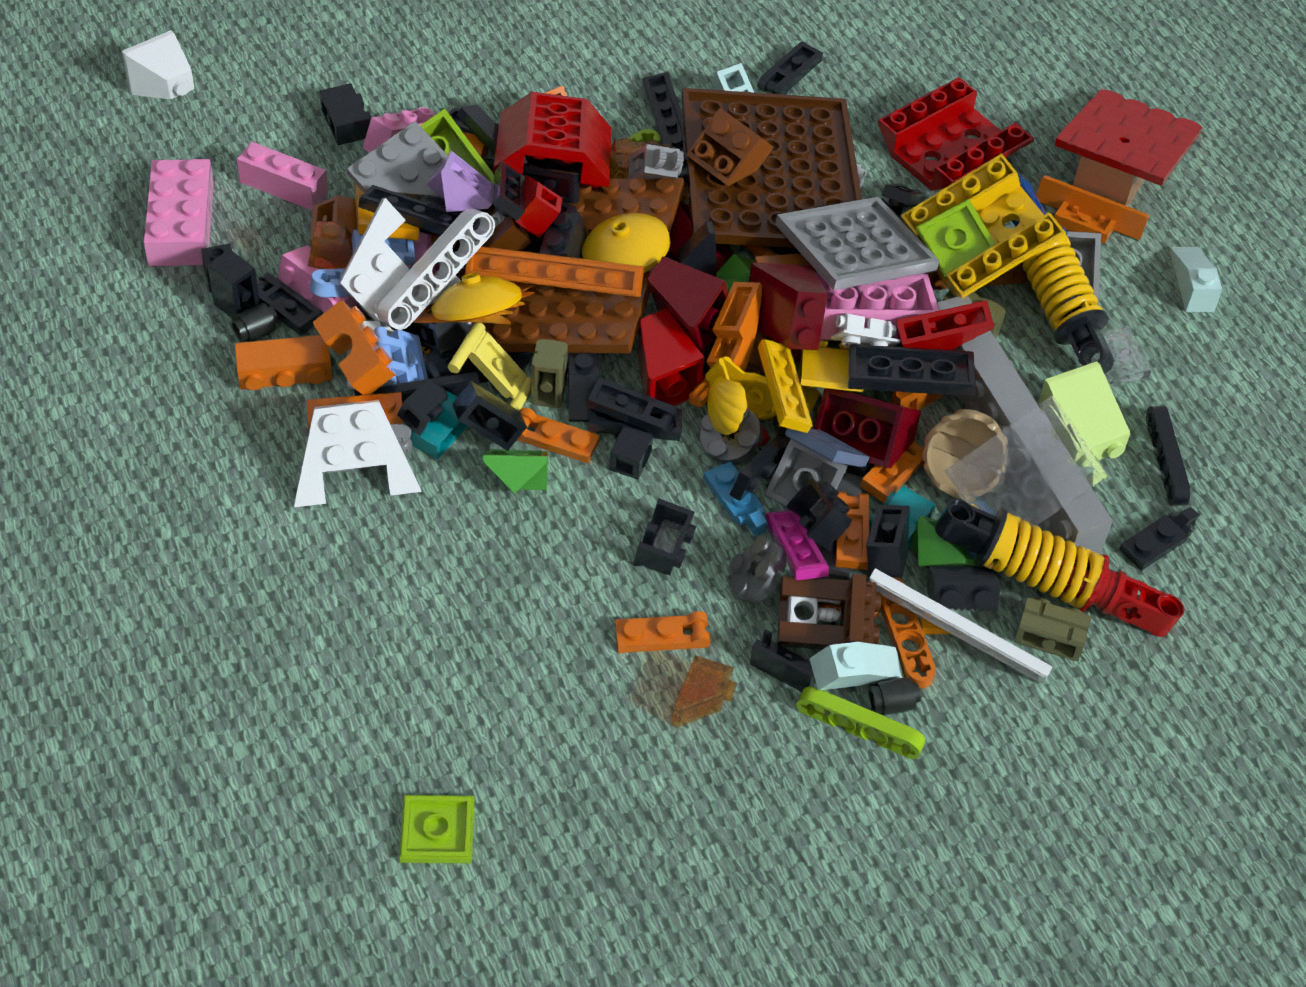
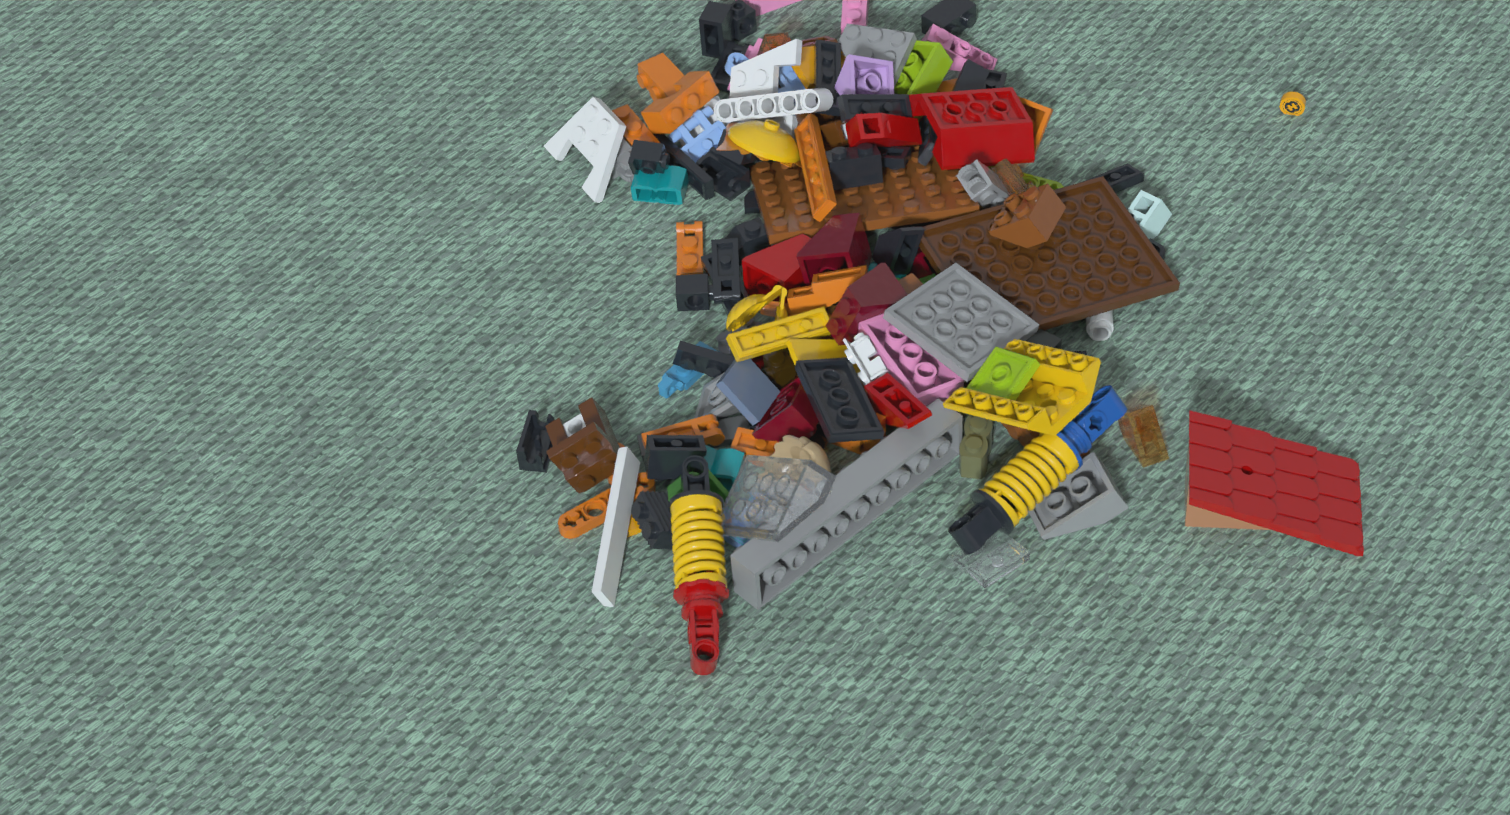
camera: 75 degrees right, 5 degrees down
(255, 322) = (698, 58): pearl dark grey brick -> none
(437, 829) = (308, 314): lime tile -> none
(489, 415) = (666, 197): black brick -> none
(494, 364) = (723, 186): light yellow plate -> none
(519, 468) = (640, 236): bright green slope -> none
(549, 373) = (733, 209): olive brick -> none
(628, 240) = (877, 197): yellow dish -> none
(662, 633) = (532, 369): orange plate -> none
(665, 537) = (617, 342): black window -> none
(703, 691) = (483, 403): clear orange slope -> none
(756, 570) = (611, 392): flat silver plate -> none
(790, 69) = (1212, 247): black plate -> none
(801, 551) = (640, 405): dark pink tile -> none
(821, 512) = (677, 408): black window -> none
(855, 665) = (542, 475): light aqua slope -> none
(861, 721) = (500, 503): lime beam -> none
(894, 696) = (536, 513): pearl dark grey brick -> none
(902, 196) = (1070, 342): black plate -> none
(938, 129) = (1203, 362): red slope -> none
(1053, 628) = (653, 590): olive brick -> none
(1089, 212) = (1163, 495): orange bracket -> none
(1091, 407) = (893, 546): yellowish green slope -> none
(1159, 538) = (798, 642): black hinge -> none
(1168, 456) = (920, 610): black beam -> none
(1196, 279) = (1138, 589): light aqua slope -> none

